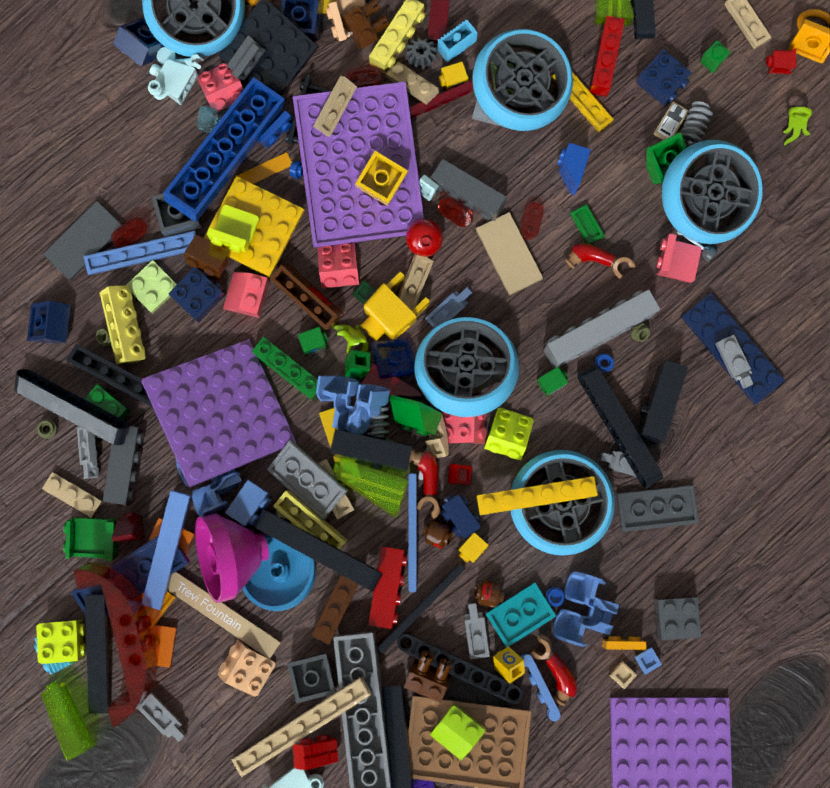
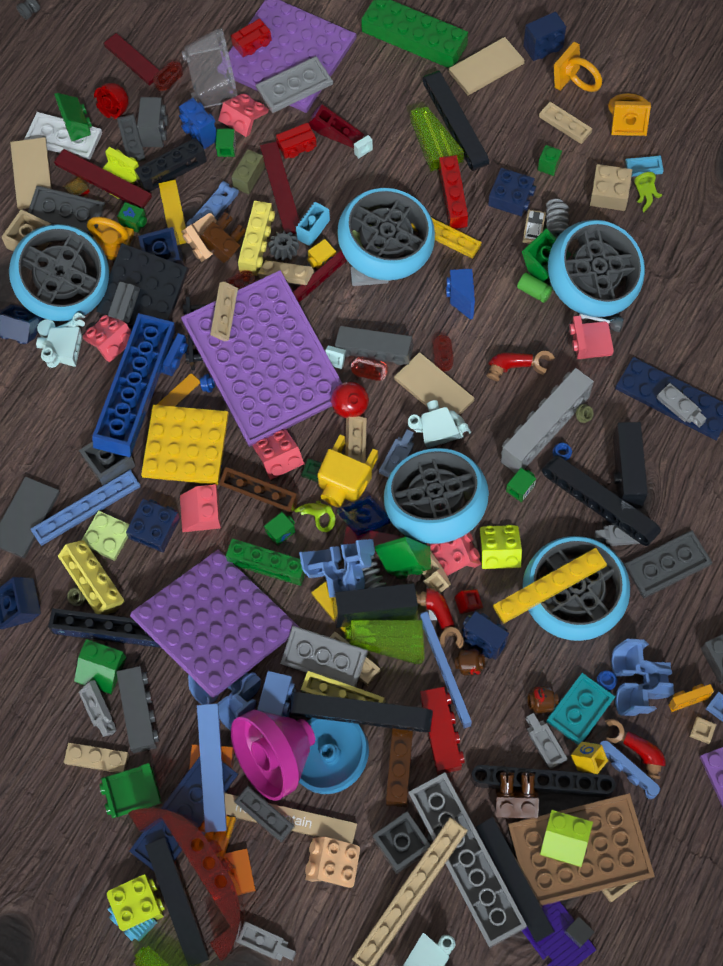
camera: 15 degrees left, 15 degrees down
(41, 429) = (48, 698): olive plate -> none
(71, 407) = (67, 669): beam -> none
(129, 232) = (66, 493): clear red plate -> none
(129, 528) = (167, 766): dark red slope -> none
(201, 604) = (264, 814): none -> dark grey tile
(207, 119) = (106, 368): clear light blue brick -> none
(207, 256) = (152, 484): reddish brown brick -> none
(234, 229) = (169, 449): neon yellow bracket -> none
(315, 753) = (433, 915): red brick -> none
(357, 364) = (331, 533): green brick -> none
(381, 178) = (290, 358): yellow brick -> none
(429, 599) = (482, 737): black tile -> none
(472, 548) = (508, 663): yellow brick -> none
(498, 294) = (438, 425): none -> light aqua torso
(587, 224) = (495, 338): green tile -> none
(645, 186) = (535, 287): none -> bright green piece
(763, 108) = (611, 187): none -> tan brick
(781, 61) = (610, 145): red window -> none
(806, 96) = (644, 164): none -> medium azure tile

